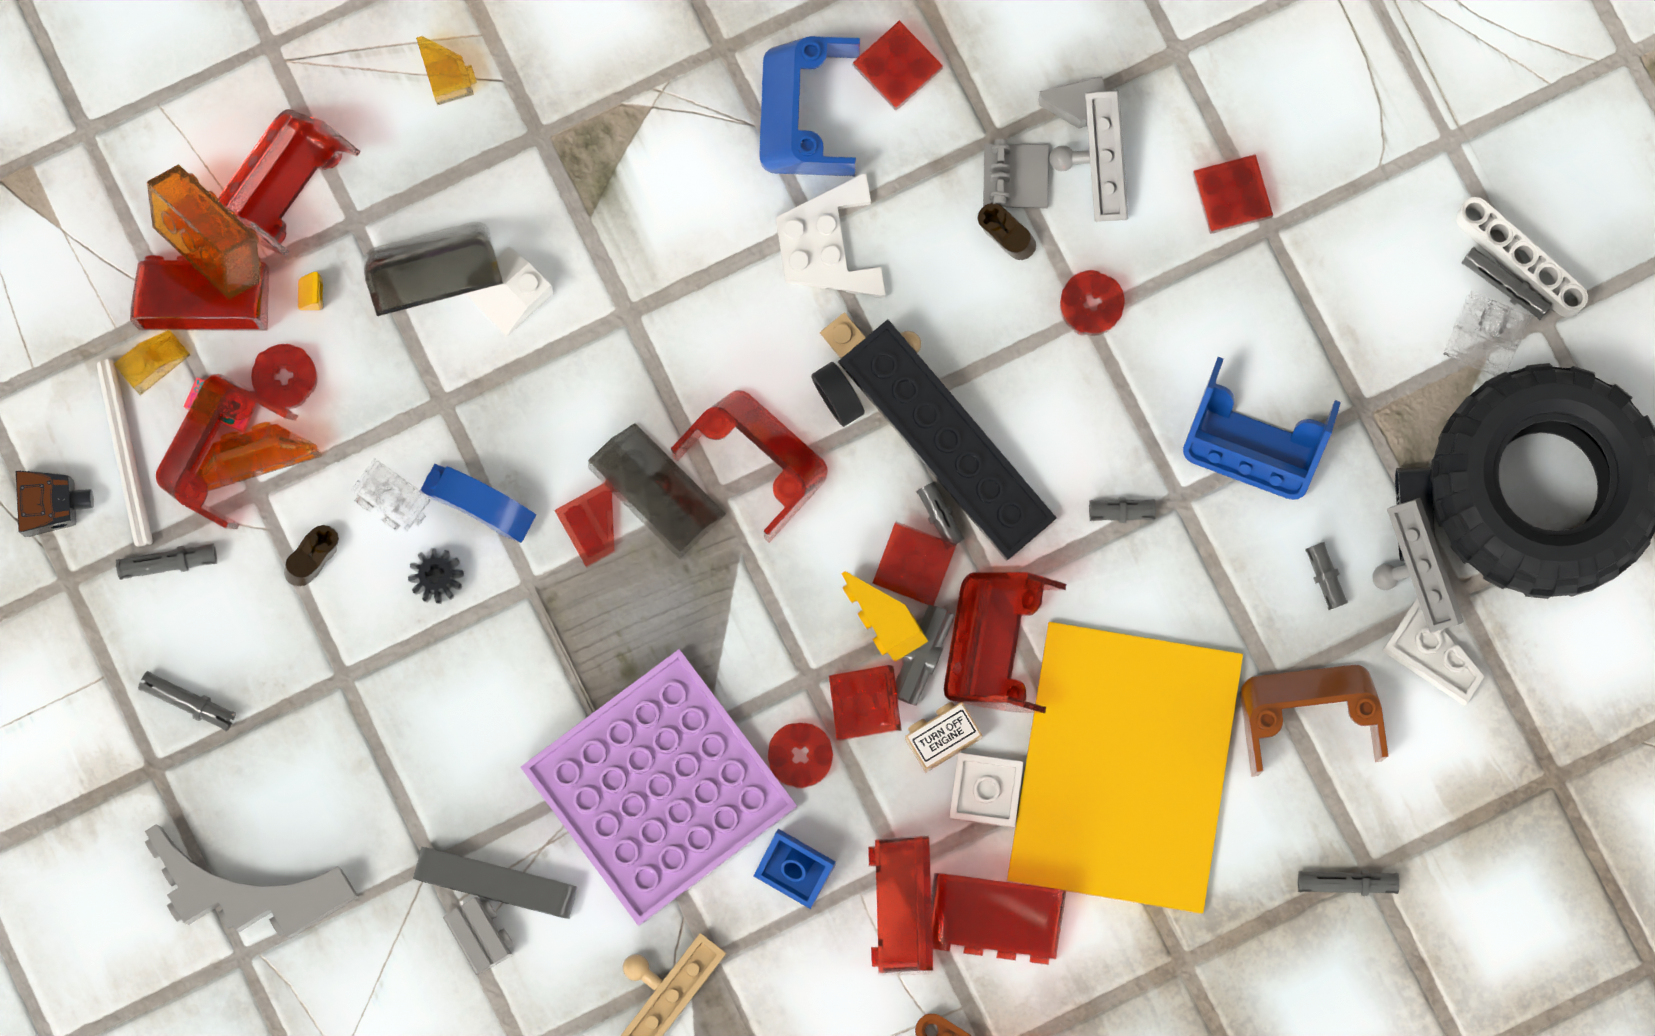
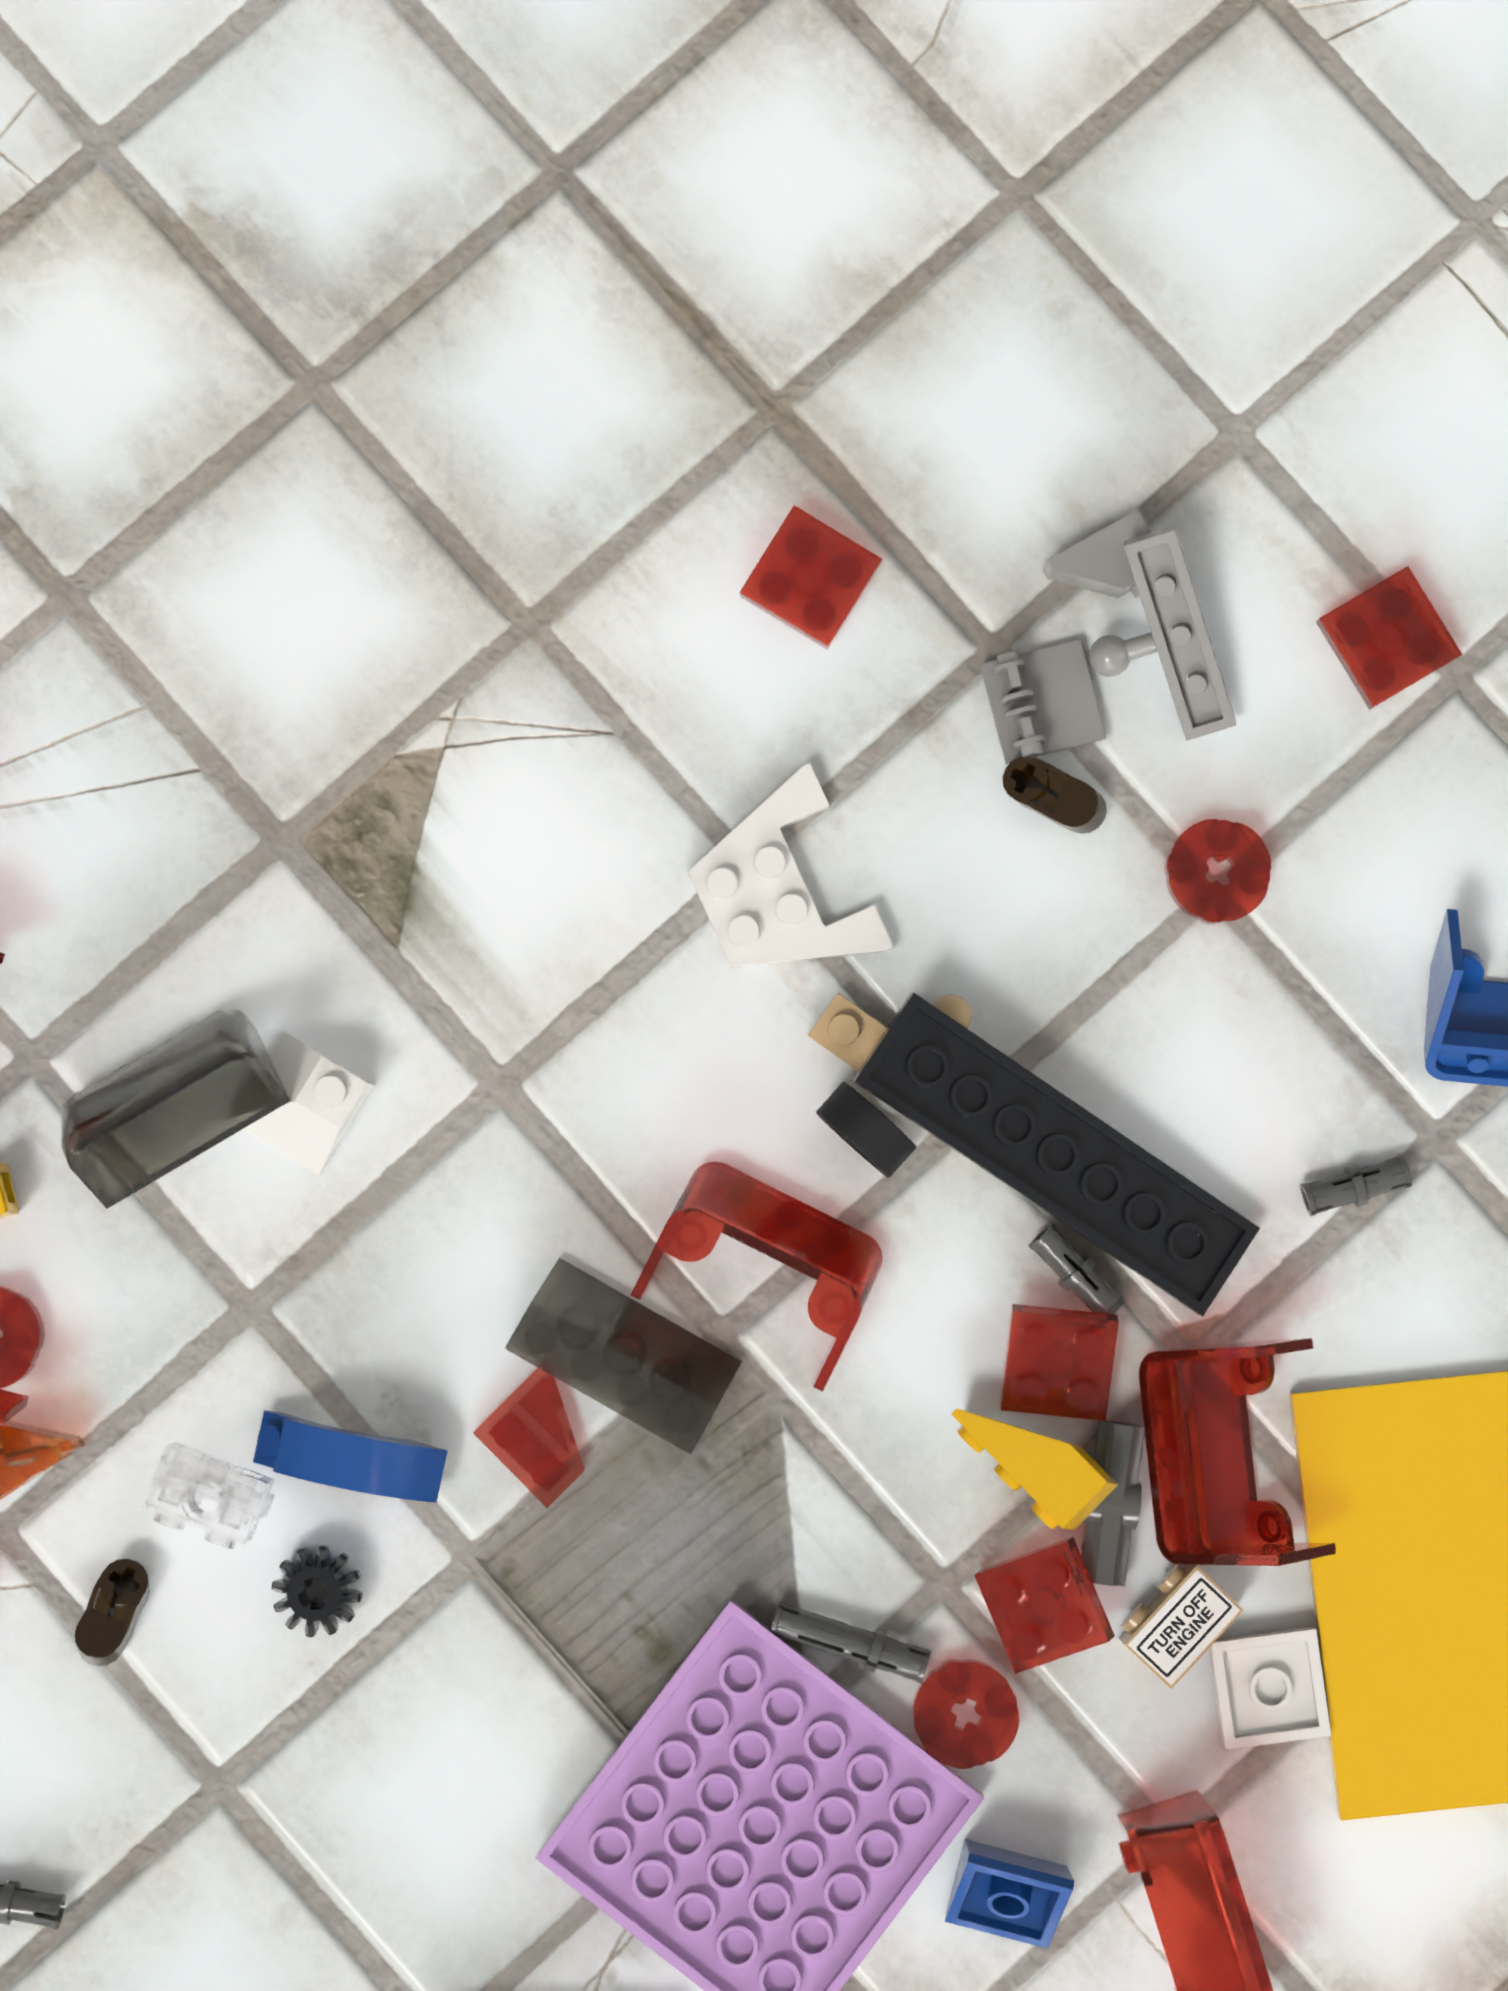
camera: 15 degrees left, 5 degrees up
(446, 72) = (105, 783): clear yellow slope -> none
(754, 701) = (857, 1644): none -> dark grey pin
(781, 143) = (662, 751): blue windscreen -> none
(996, 917) = (1347, 1886): clear red windscreen -> none

